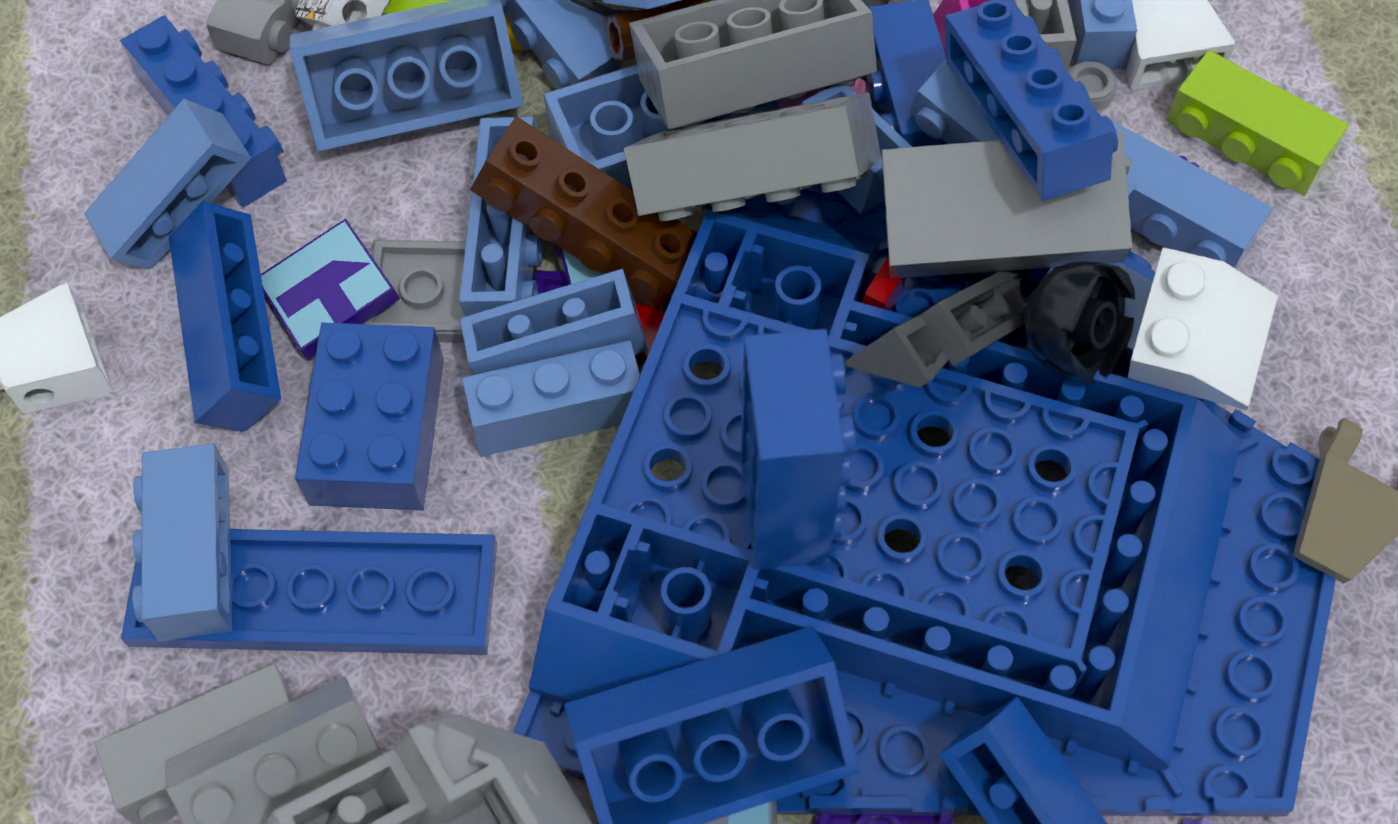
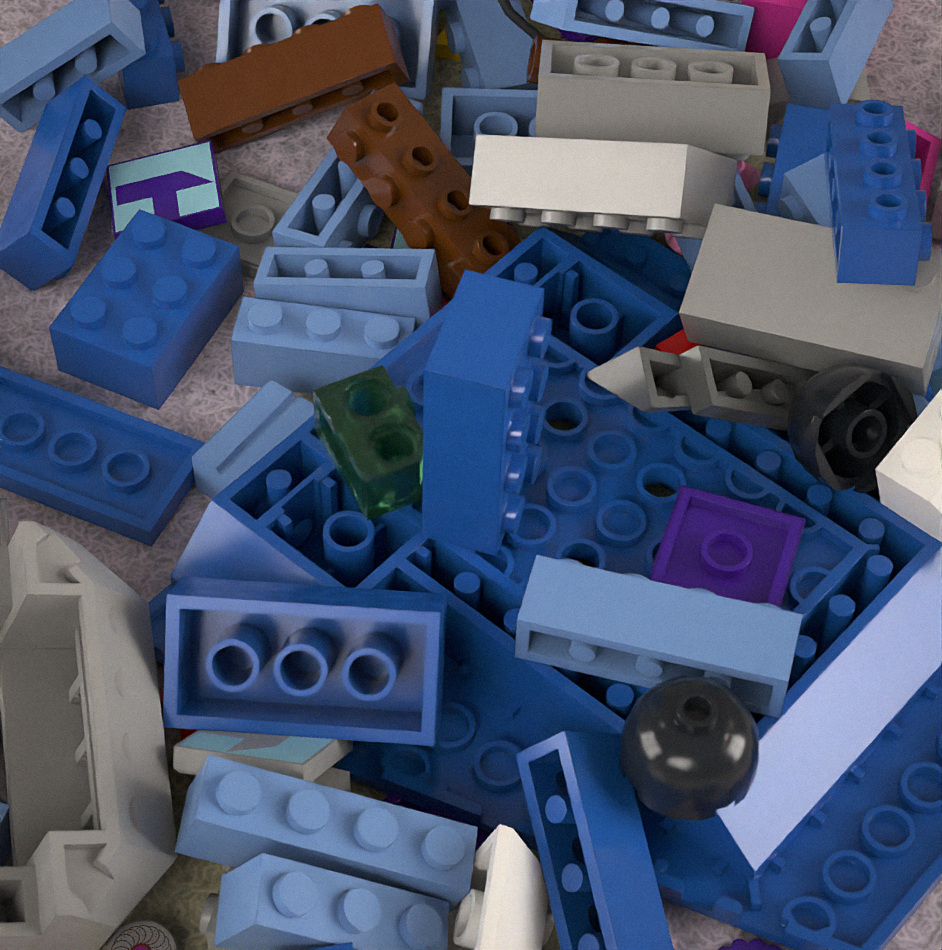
camera: 20 degrees right, 10 degrees down
(400, 132) = (293, 78): none -> reddish brown brick
(541, 519) = (248, 437): none -> medium blue brick
(664, 504) = (372, 439): none -> clear green brick
(1015, 591) = (655, 632): none -> medium blue brick
(1029, 488) = (727, 547): none -> dark purple tile
(1091, 691) = (689, 748): none -> black cylinder

